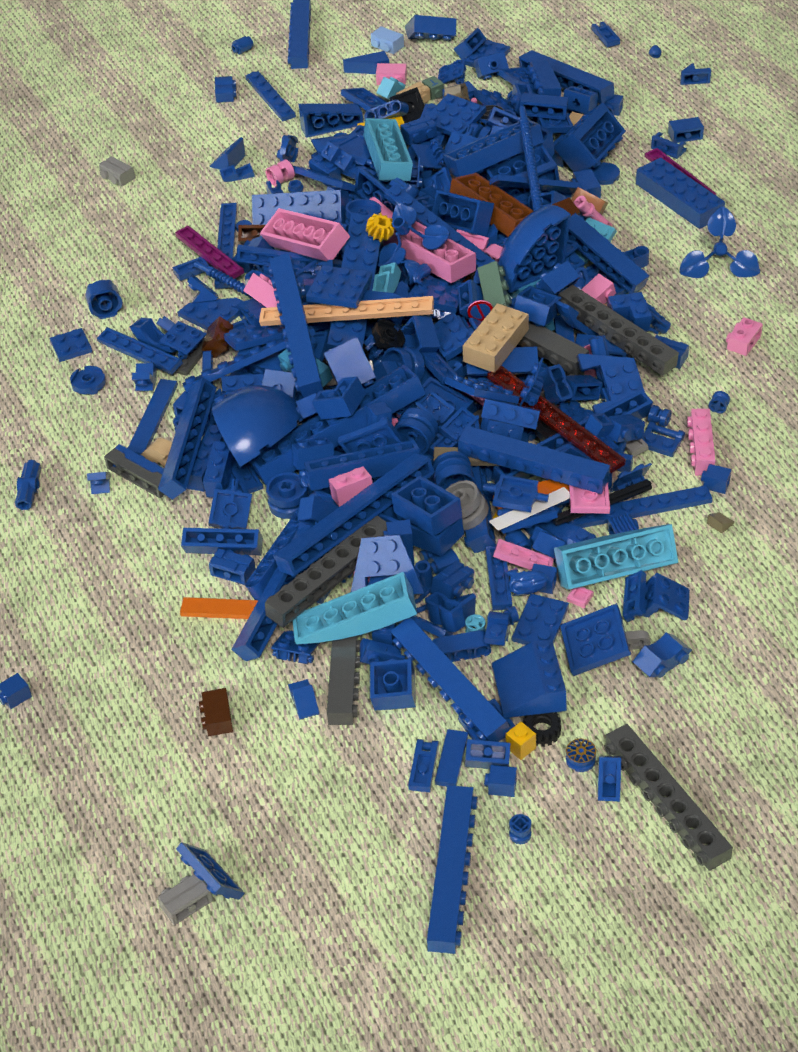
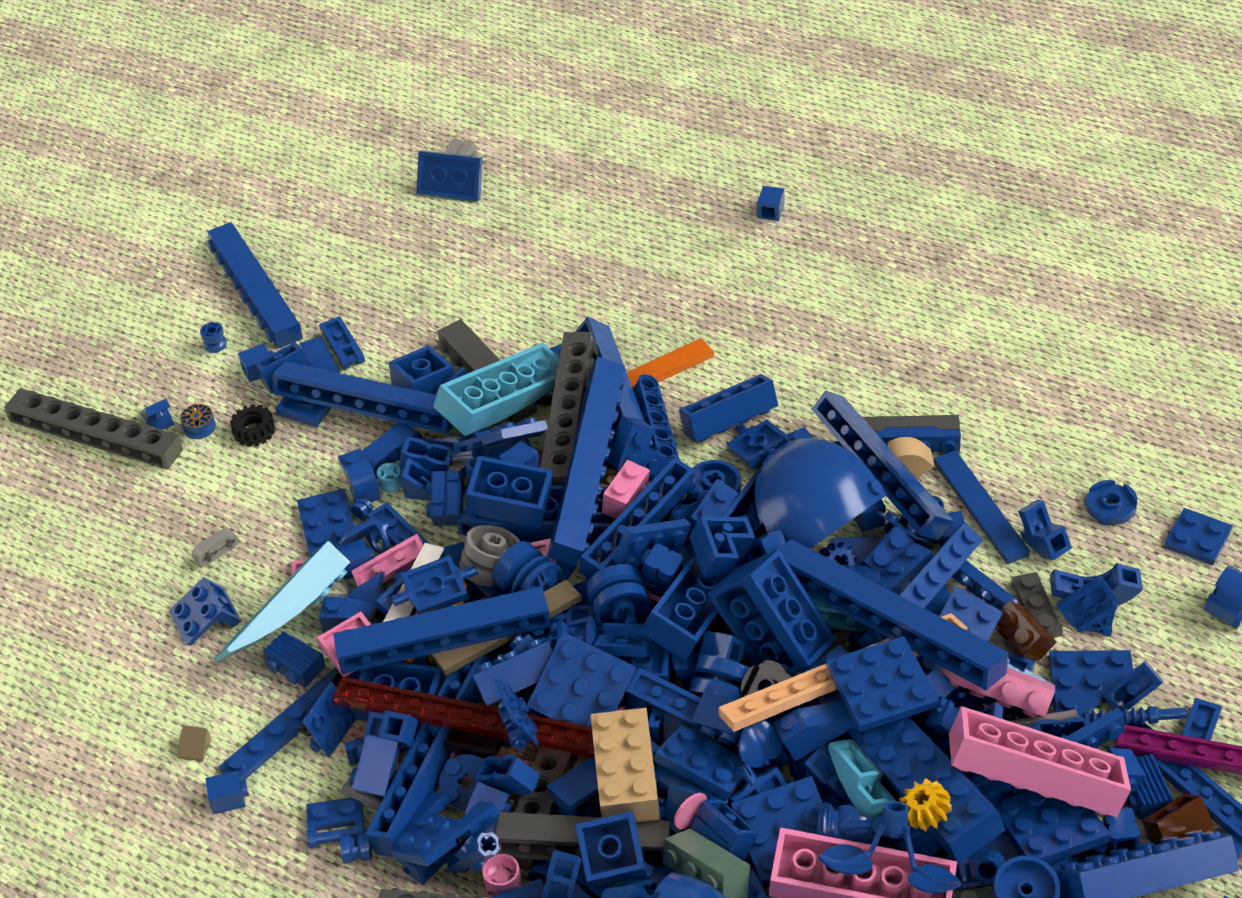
camera: 145 degrees right, 0 degrees up
(27, 485) = (1008, 360): blue piece -> none
(99, 482) = (939, 397): blue slope -> none
(139, 350) = (1151, 568): blue tile -> none
(183, 339) = (1050, 587): blue hinge -> none
(216, 711) = (569, 280): reddish brown brick -> none
(232, 566) = (691, 392): blue brick -> none
(303, 699) = (505, 337): blue slope -> none
(521, 740) = (262, 394): yellow brick -> none
(530, 681) = (286, 446): blue slope -> none
(595, 639) = (248, 517): blue plate -> none
(634, 596) = (238, 592): blue plate -> none
(662, 655) = (168, 545): blue brick -> none
(702, 440) = (274, 834): bright pink brick -> none

